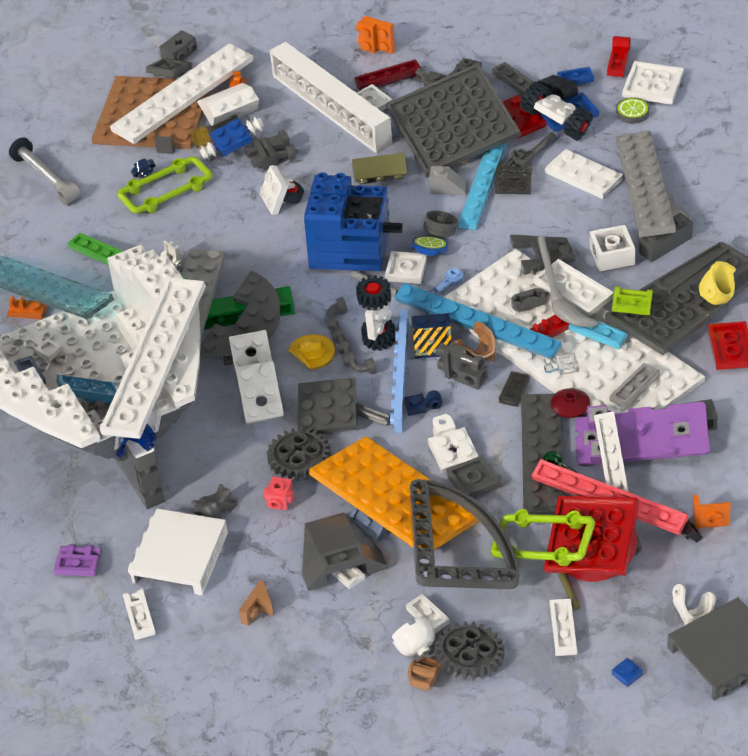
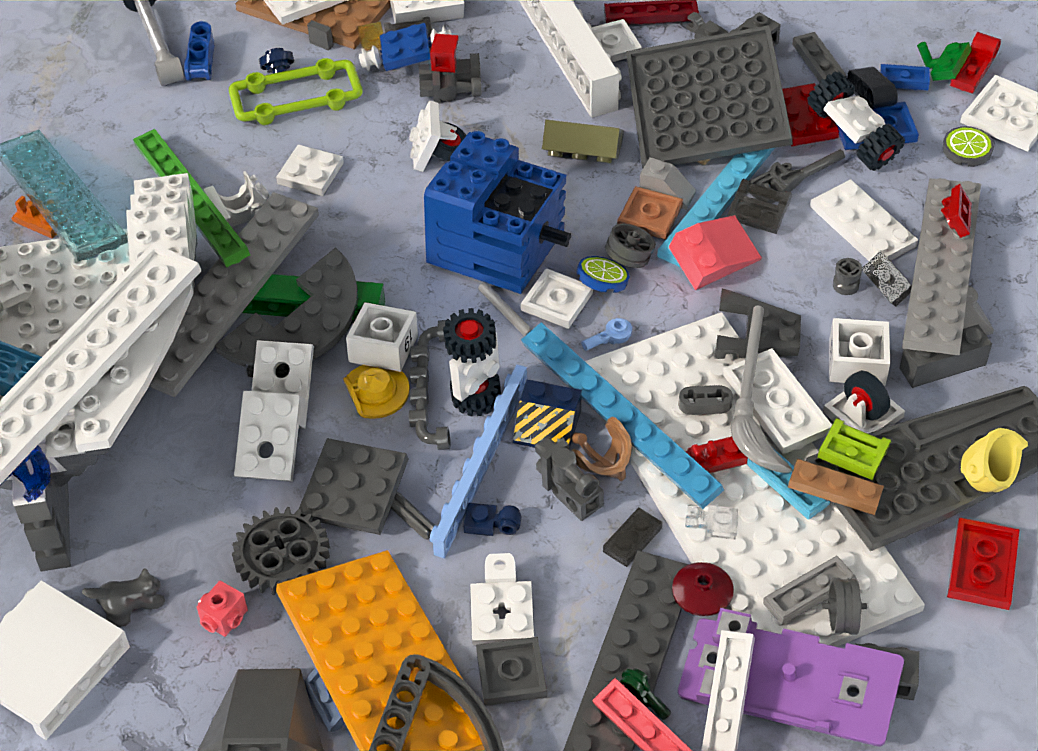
camera: 15 degrees right, 5 degrees up
(84, 175) = (199, 52): none -> blue piece
(200, 232) = (310, 170): none -> white plate
(263, 133) = (444, 53): none -> red panel
(304, 317) = (382, 337): none -> white brick
(444, 199) = (651, 211): none -> nougat plate
(495, 213) = (713, 250): none -> coral slope
(586, 207) = (847, 276): none -> dark grey wheel
(601, 59) = (949, 62): none -> green plate
(612, 202) = (887, 278): none -> clear smoke plate
(627, 274) = (864, 404): none -> plate
(629, 324) = (835, 486): none -> medium nougat plate
(643, 149) = (958, 211): none -> red plate
(660, 385) = (844, 606): none -> dark grey wheel

